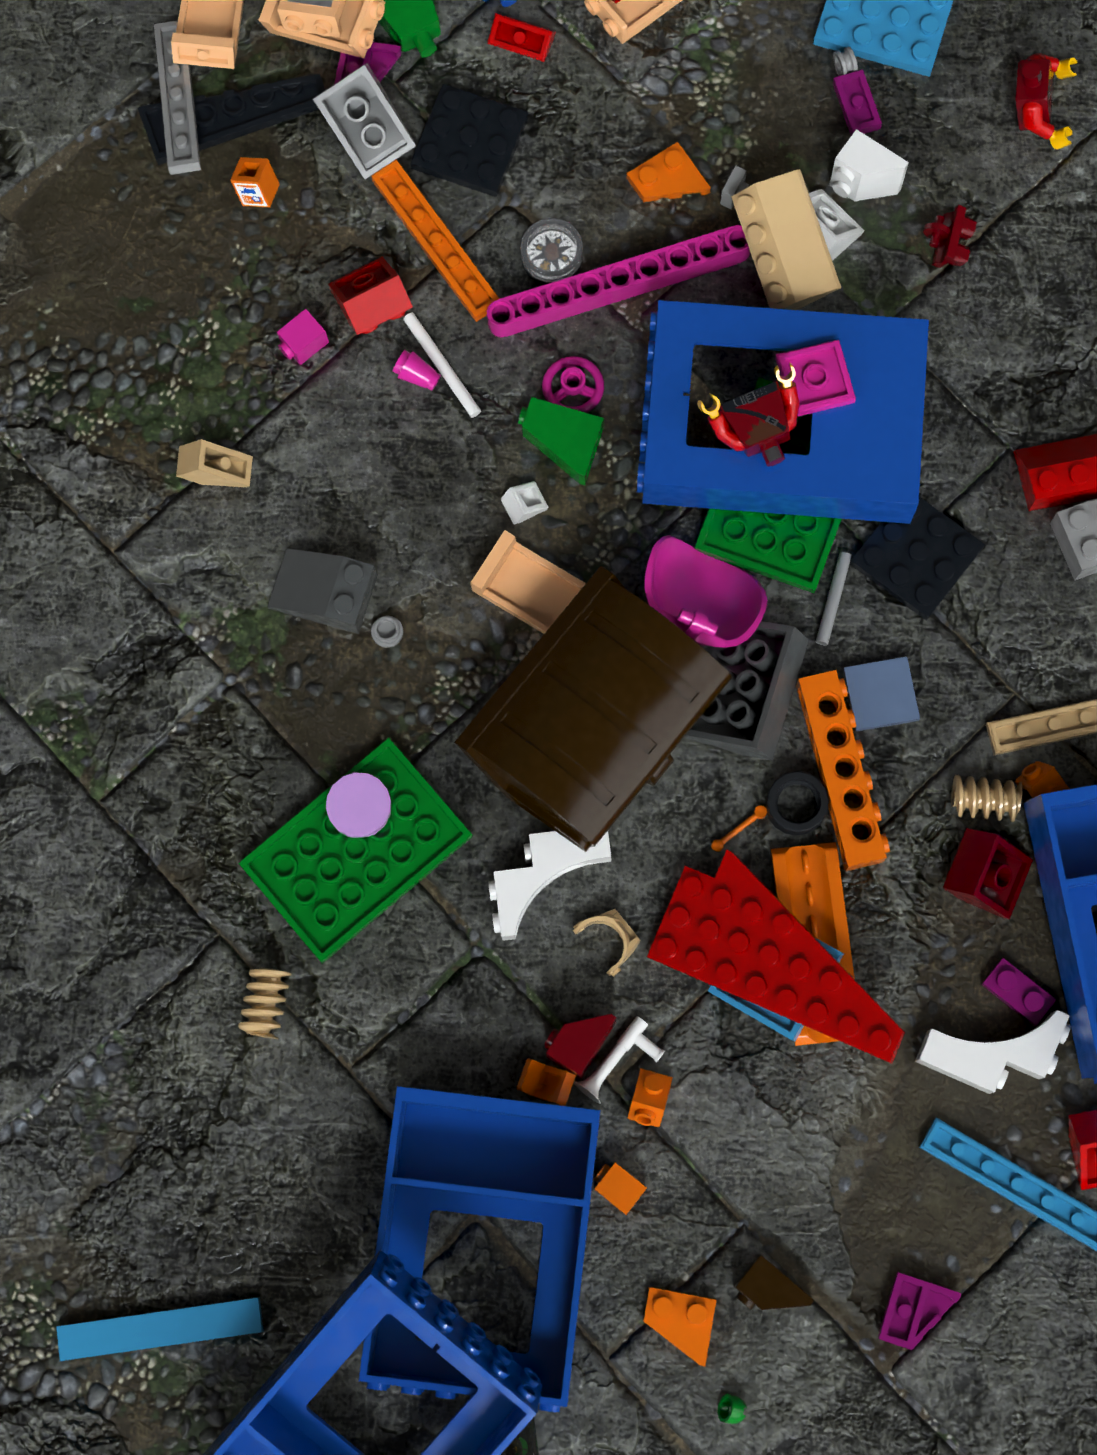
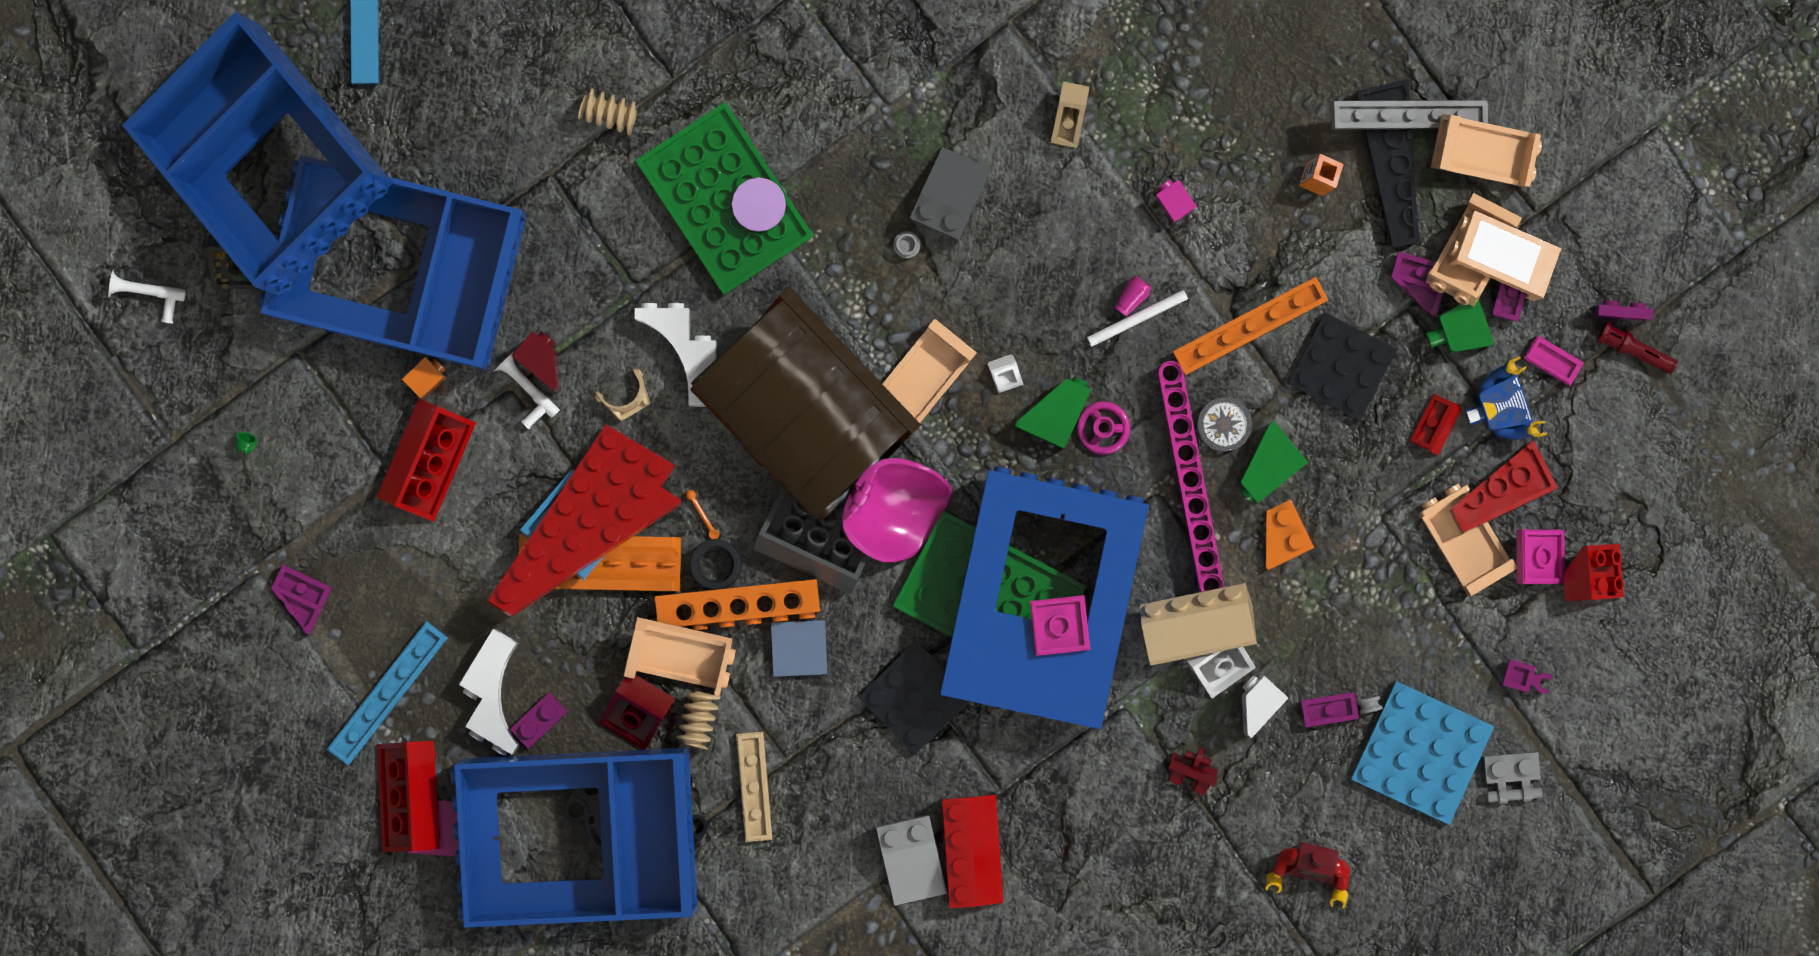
camera: 90 degrees right, 10 degrees up
(365, 121) = (1365, 275): light grey slope -> none
(371, 296) = (1206, 263): slope -> none
(546, 1082) = (514, 329): orange bracket -> none
(590, 198) = (1270, 464): none -> green slope
(650, 1098) = (492, 411): orange bracket -> none
(682, 1320) = (317, 413): orange wing -> none
(721, 1173) = (426, 460): none -> red slope
(734, 185) = (1263, 591): light grey plate -> none
(757, 419) = (1025, 570): torso -> none
(769, 1288) = (332, 485): dark brown slope -> none
(833, 598) = (886, 621): light grey bar -> none
(913, 827) = (680, 654): none -> light nougat panel
(1041, 779) = (705, 768): orange bracket -> none

